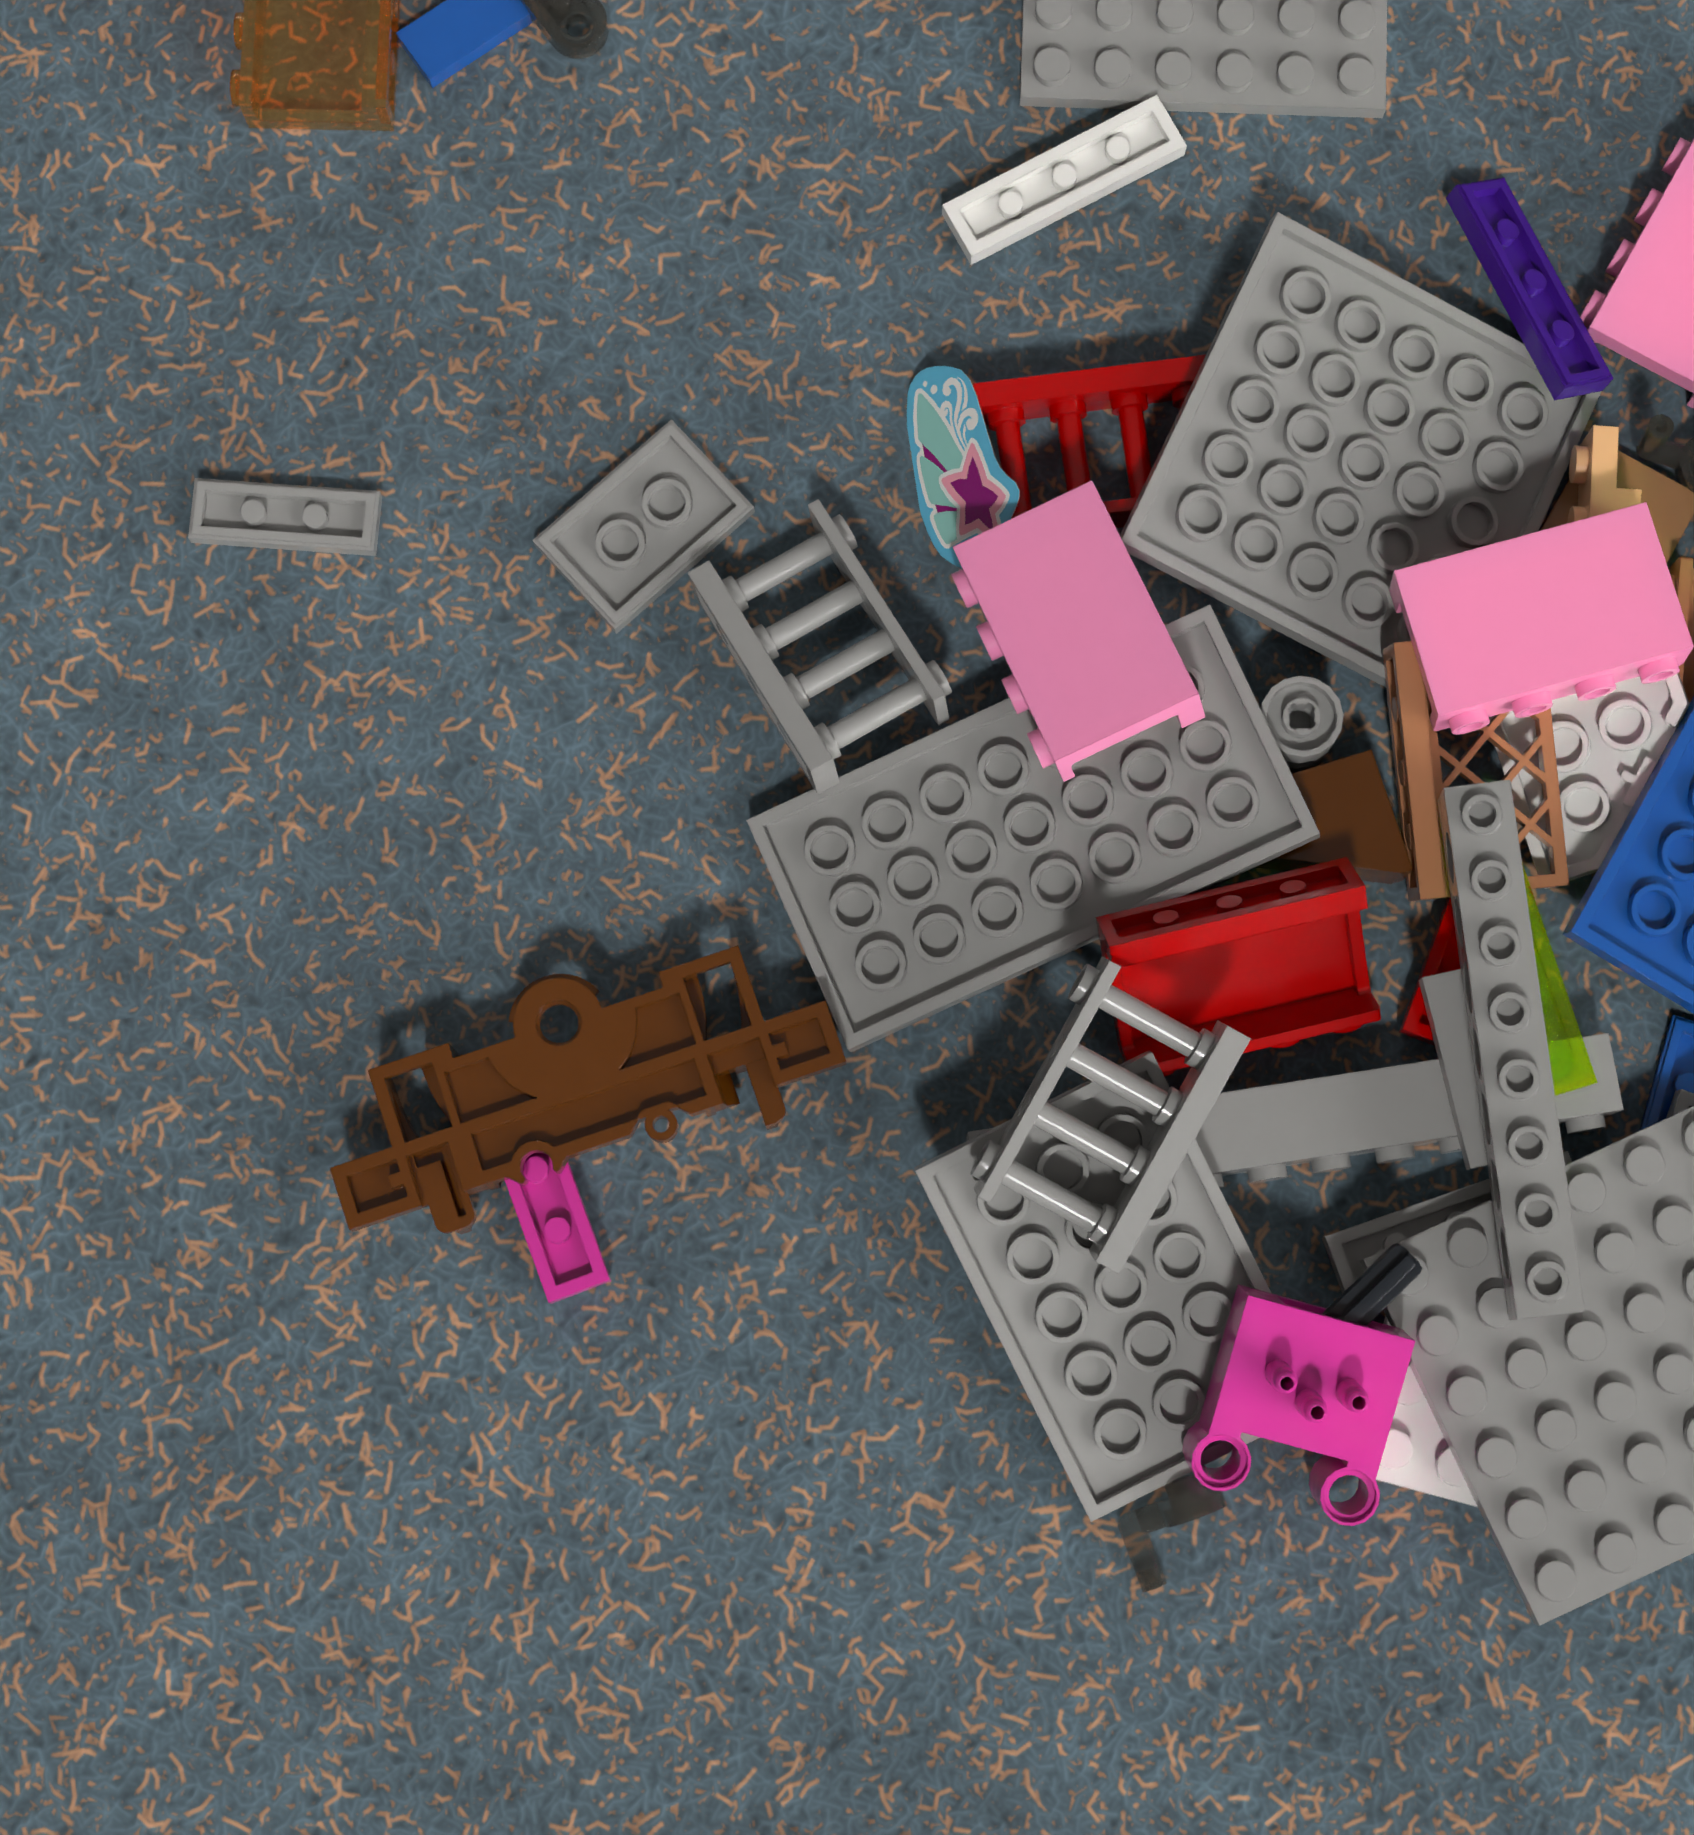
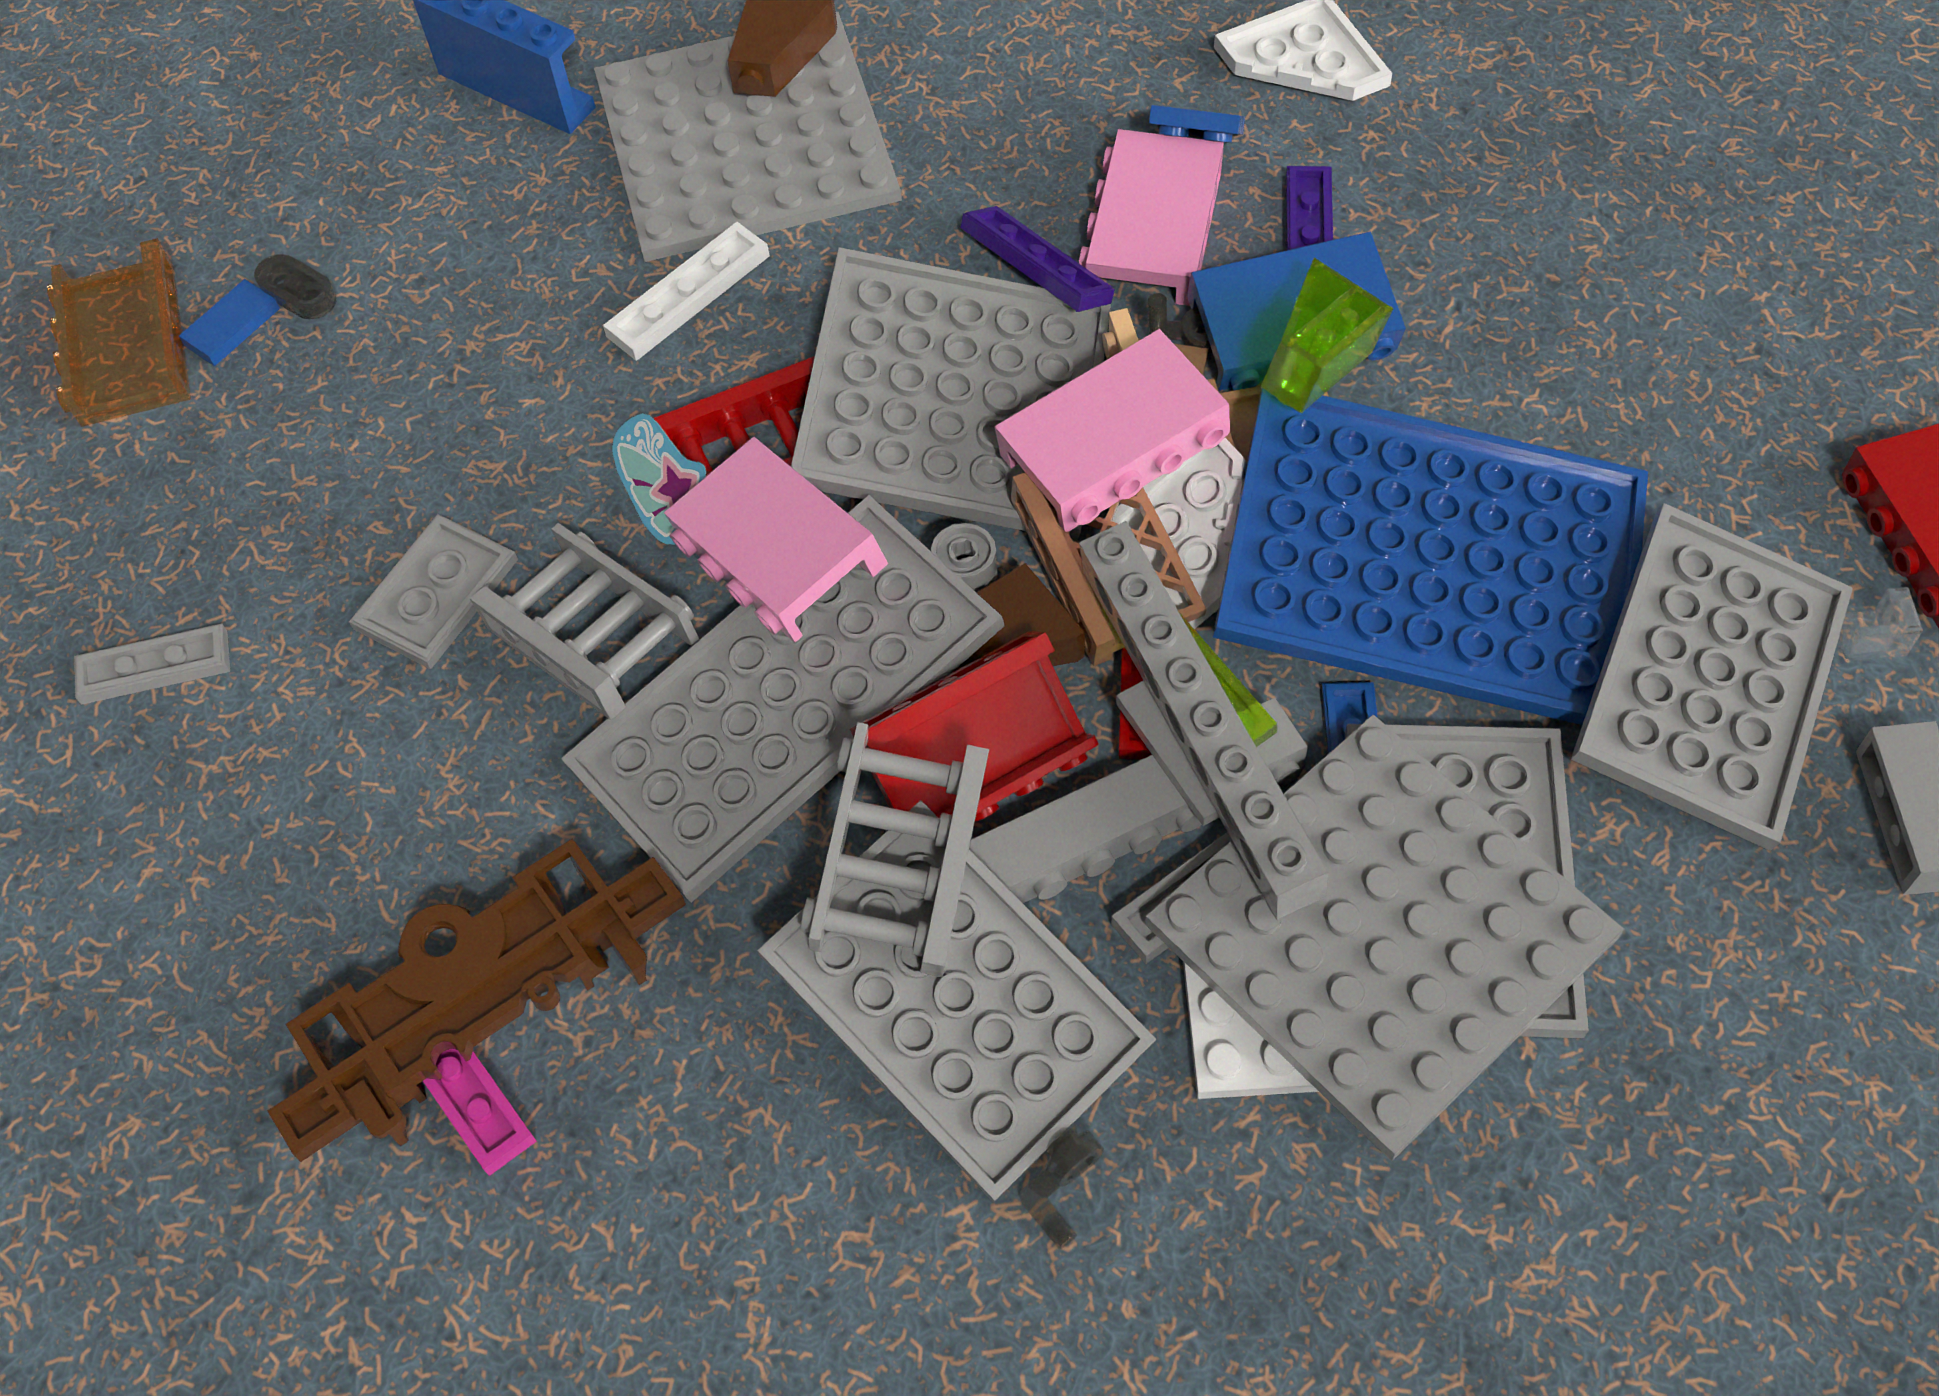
camera: 15 degrees left, 20 degrees down
(1310, 1382) = (1135, 1016): dark pink piece -> none

